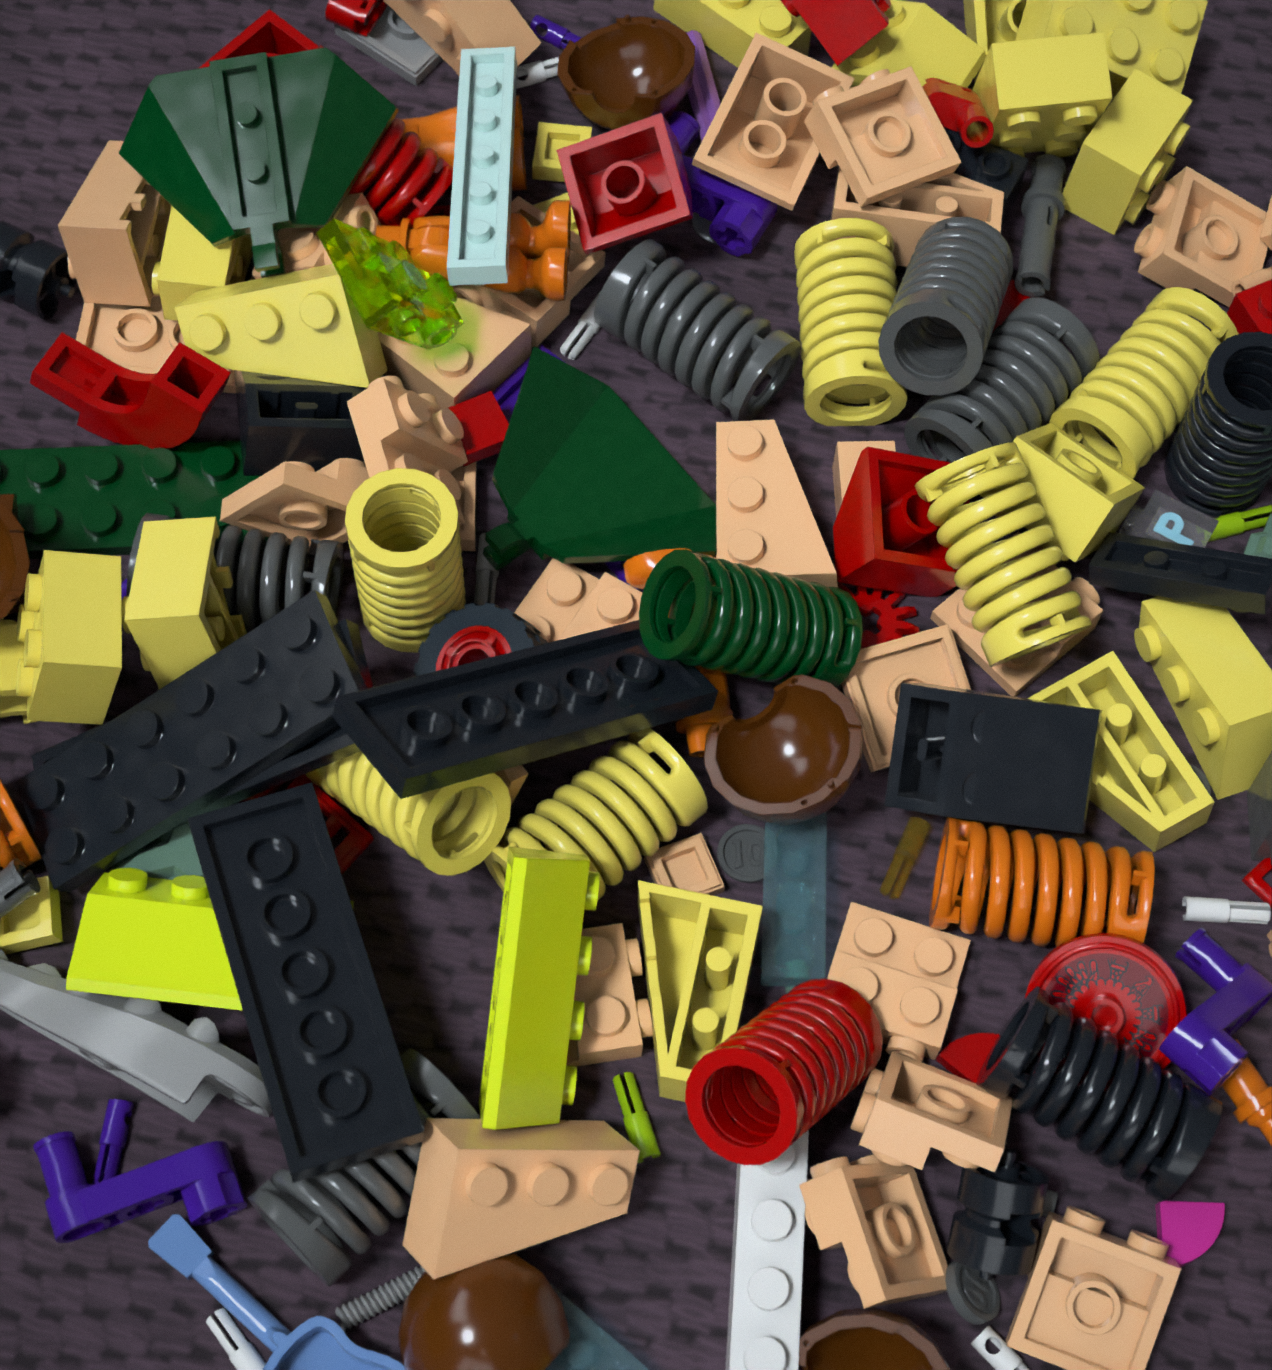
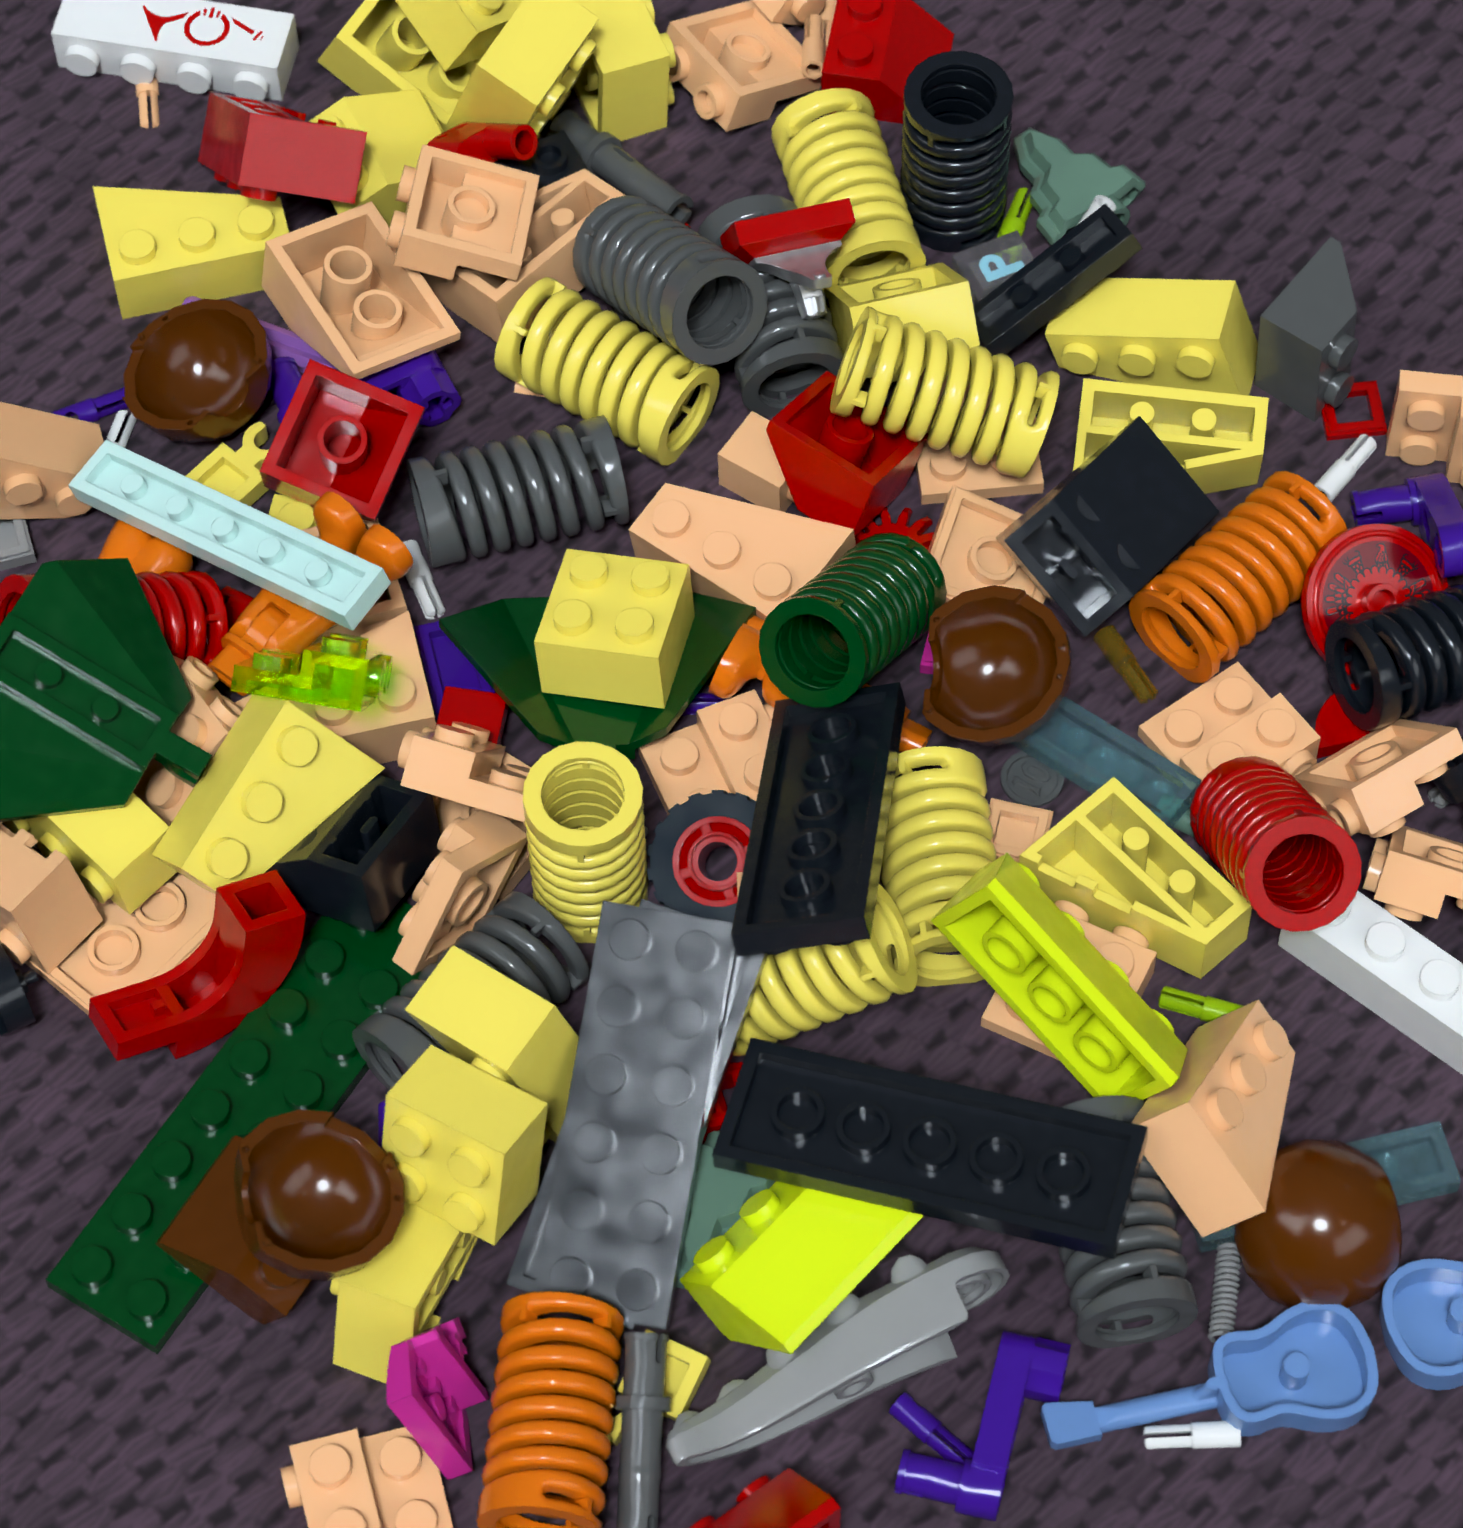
camera: 50 degrees left, 5 degrees down
(620, 467) = (615, 628): none -> light yellow brick
(1038, 364) = (794, 248): none -> piece

